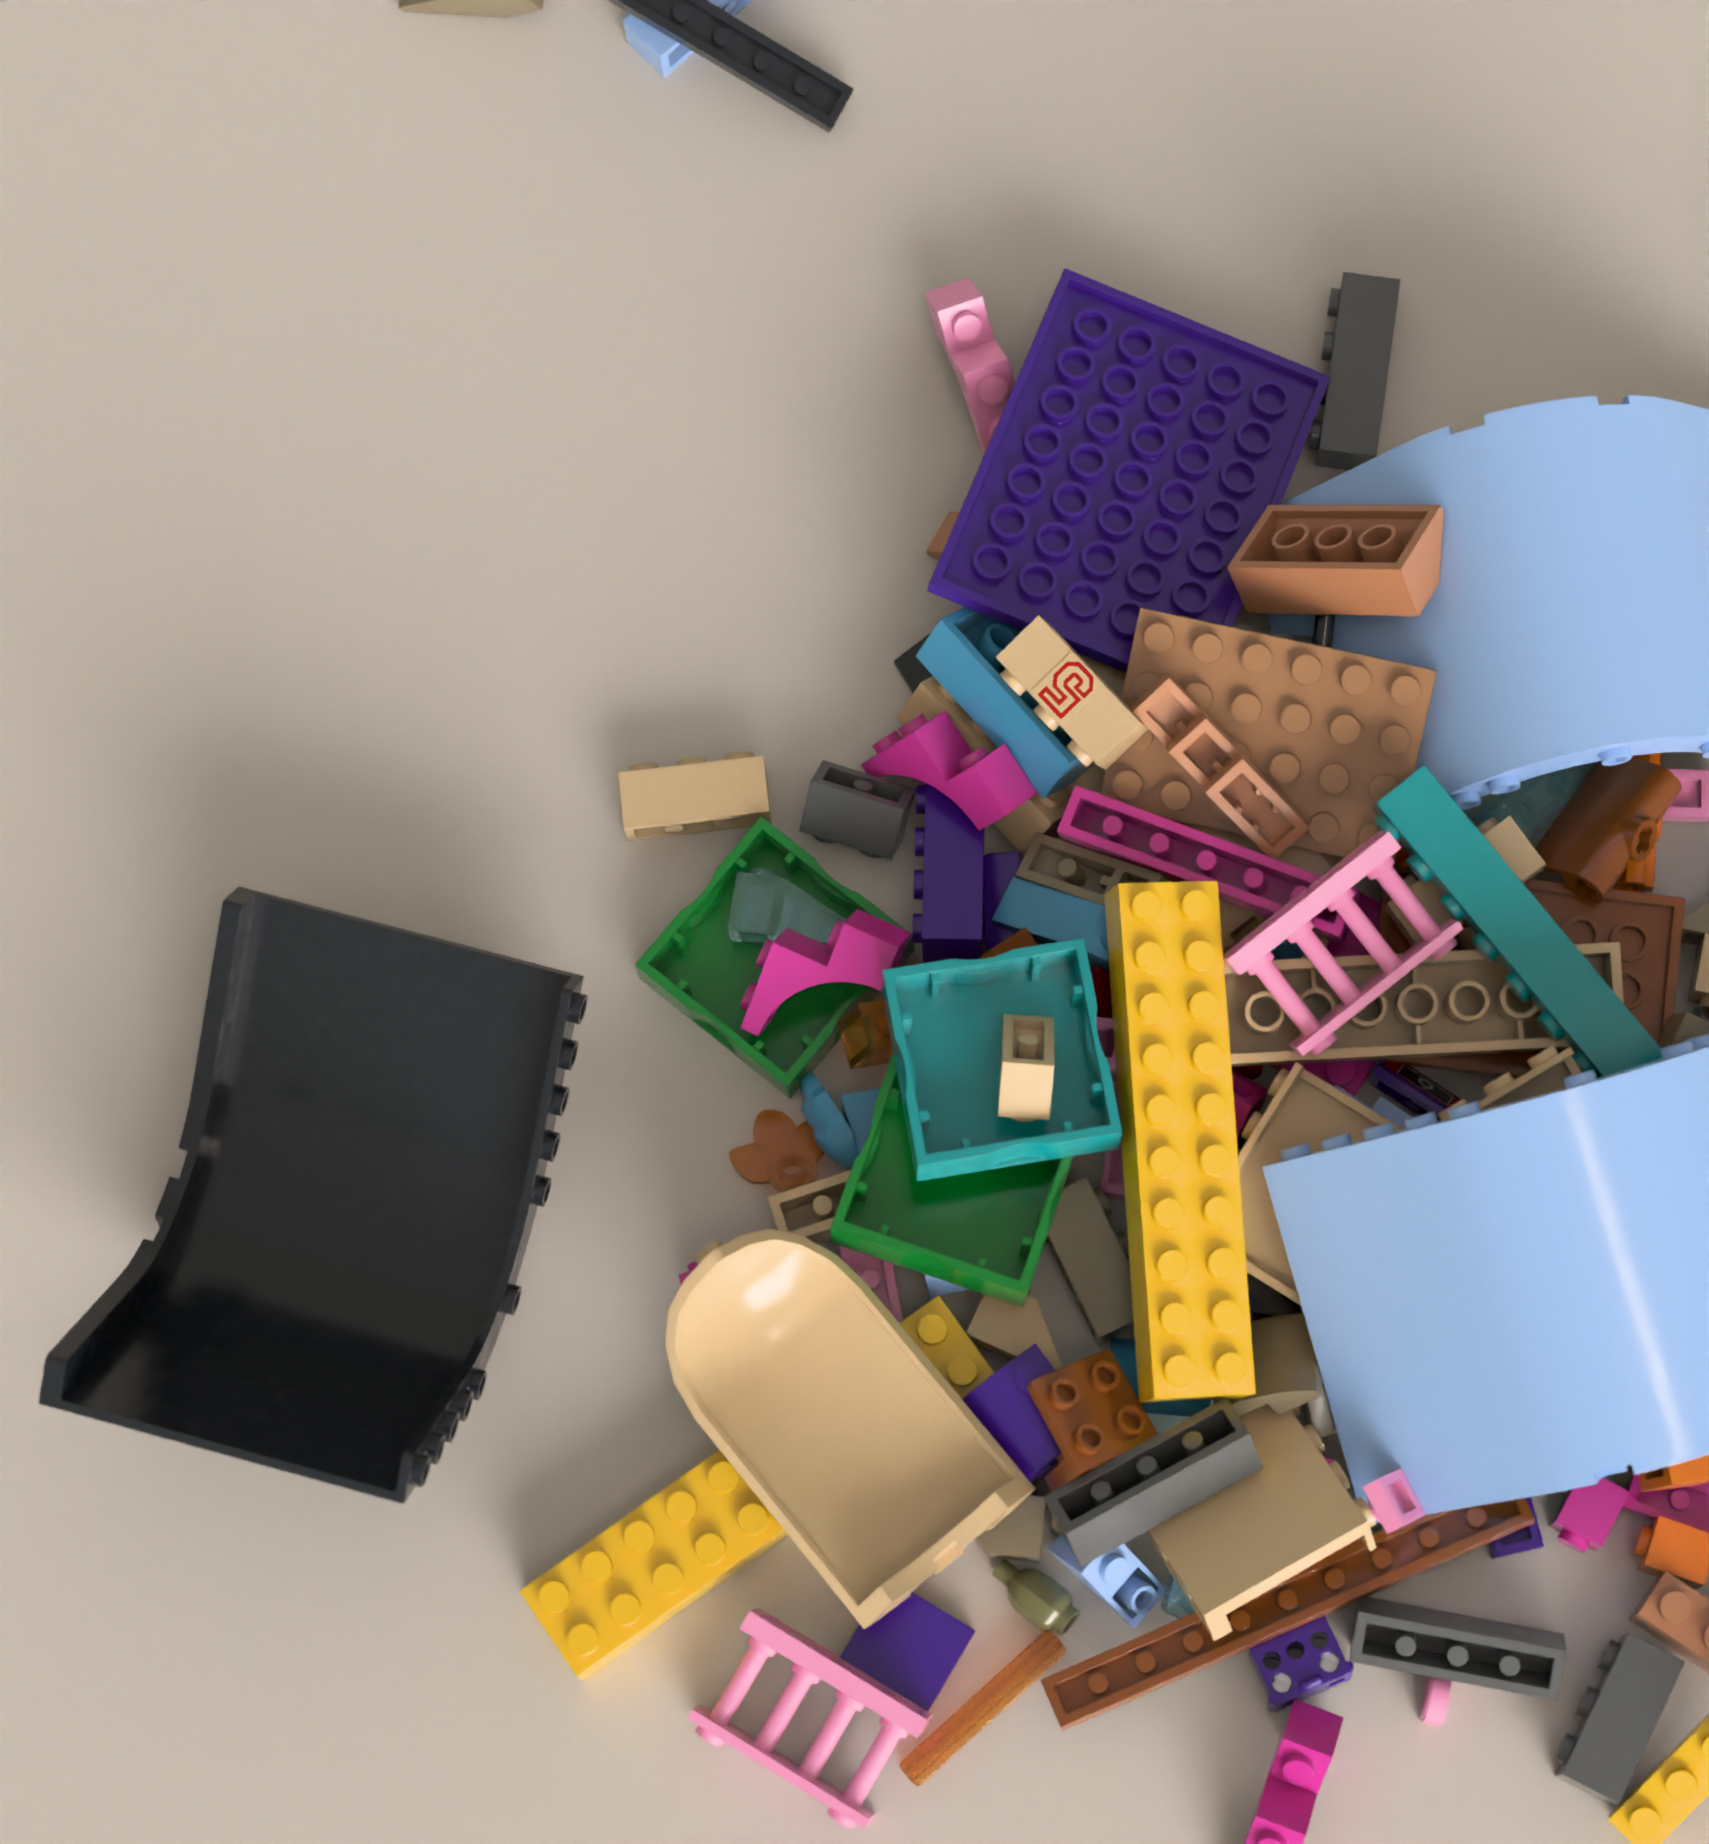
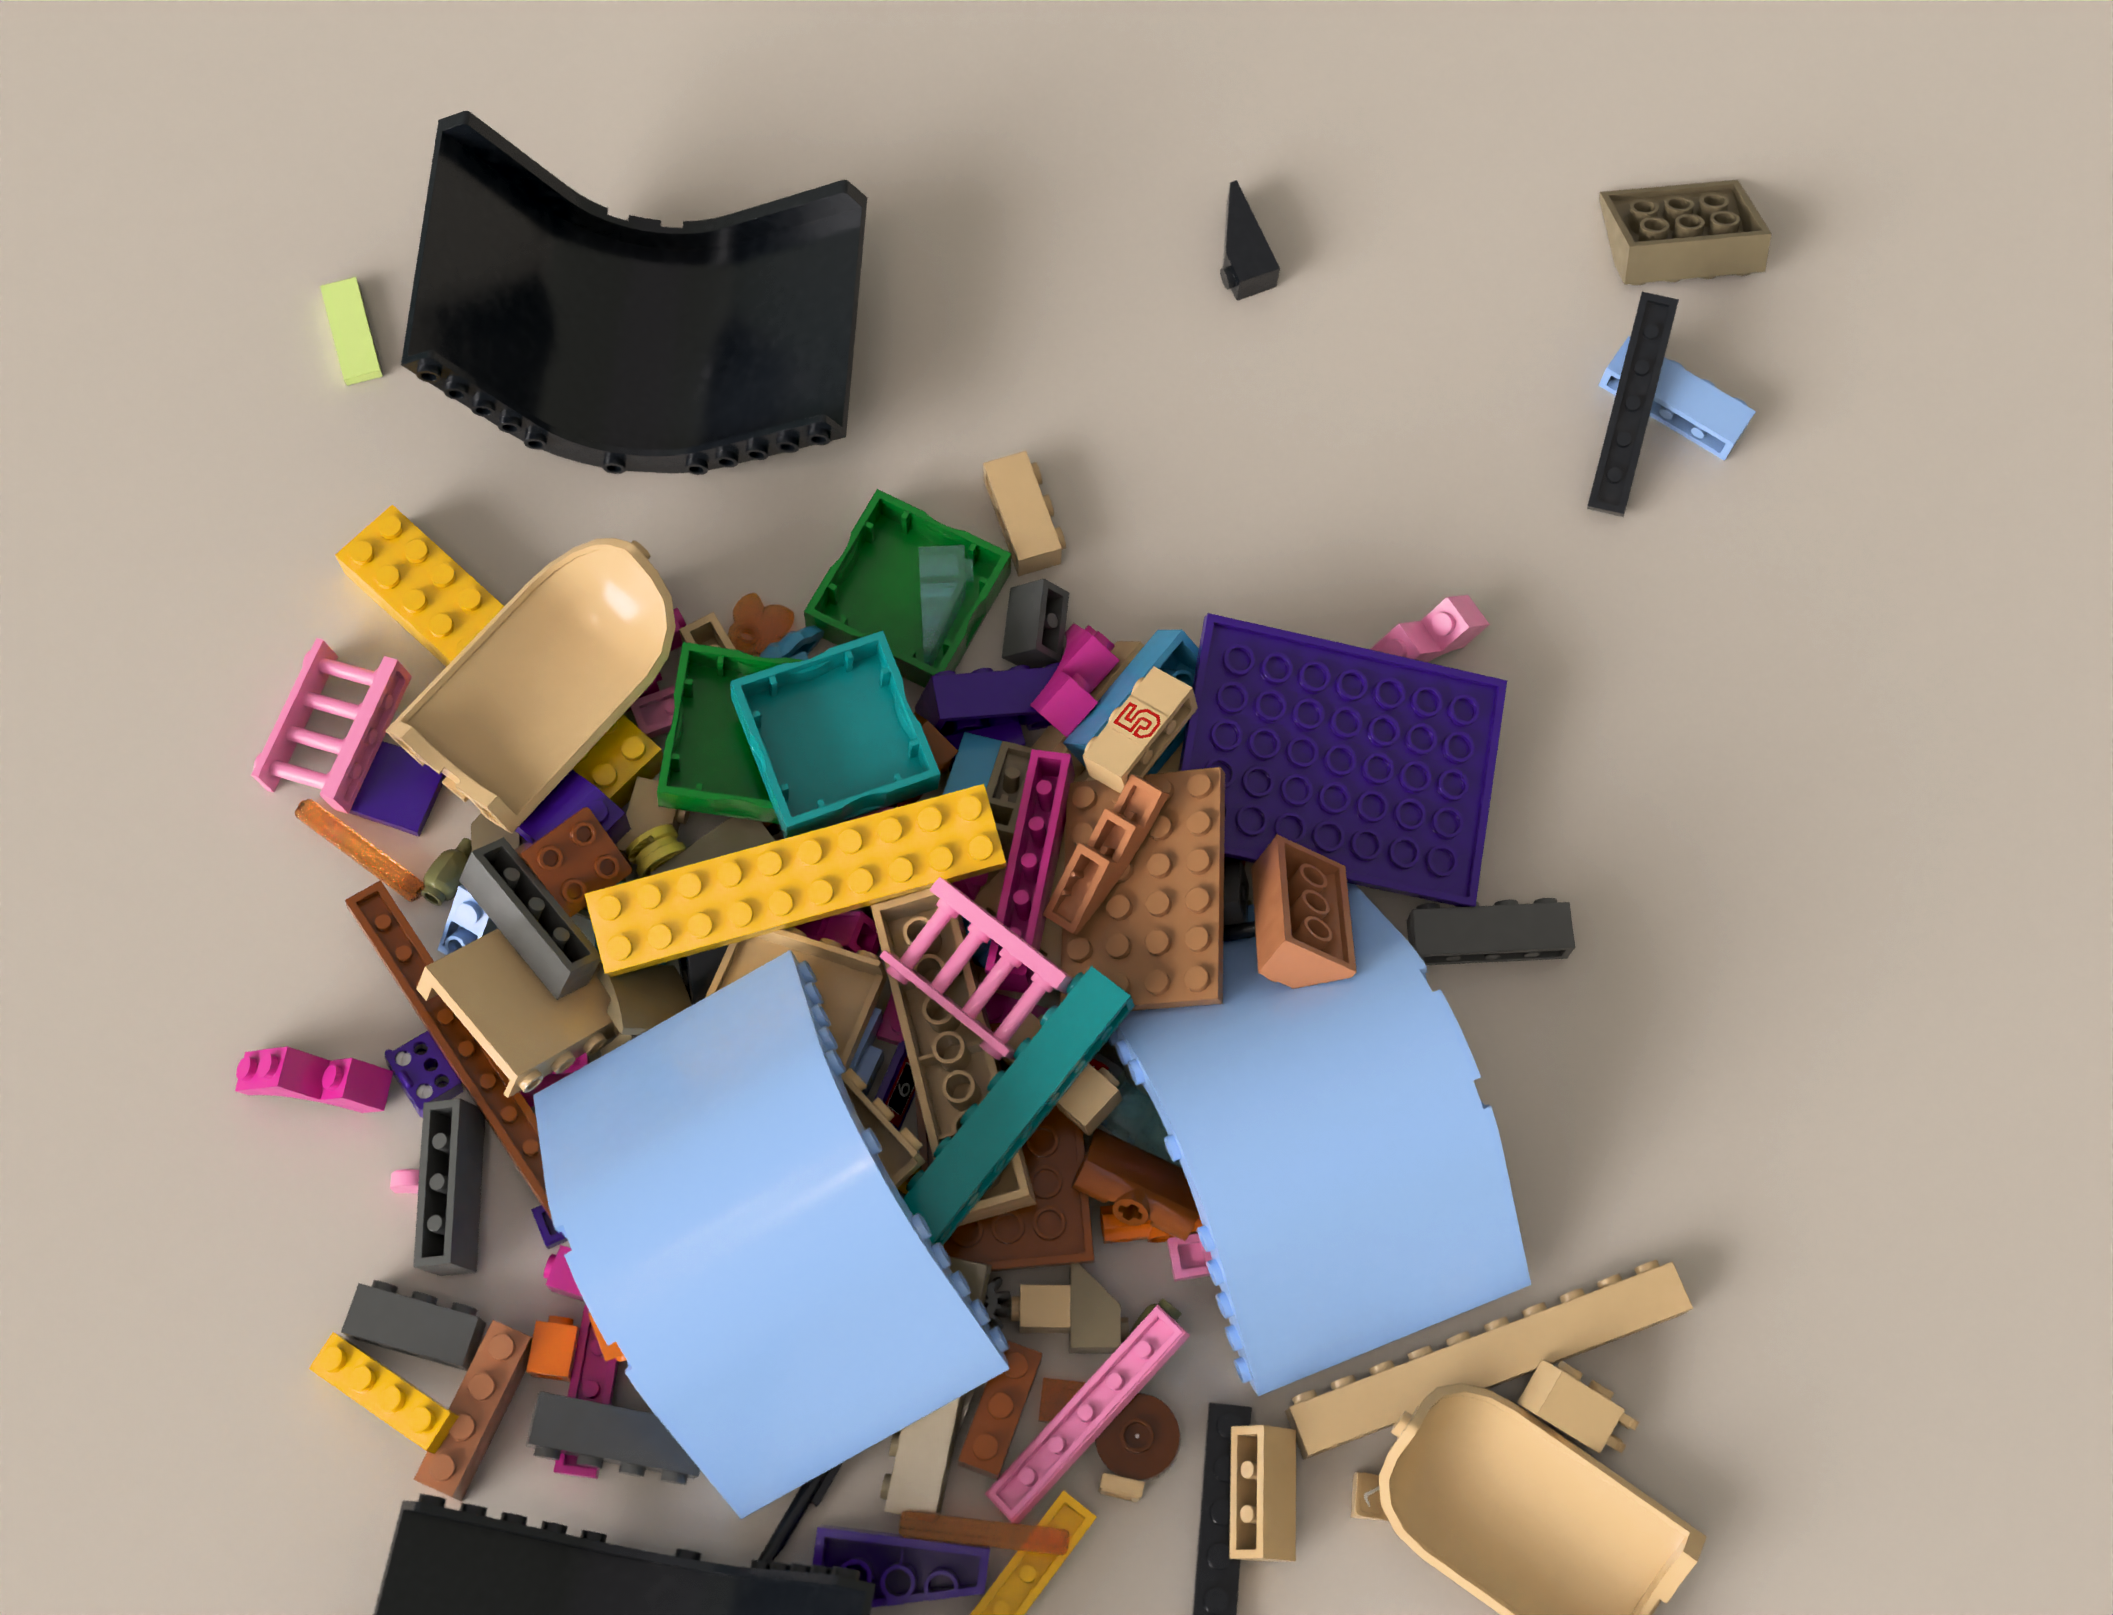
camera: 65 degrees right, 5 degrees down
(224, 1623) = (351, 331): none -> yellowish green tile
(385, 449) = (1247, 258): none -> black slope
(792, 962) = (909, 628): dark pink arch -> none
(1026, 1067) = (831, 753): tan slope -> none
(1074, 1325) = (654, 849): none -> light yellow wheel
(1393, 1501) = (541, 1099): bright pink plate -> none

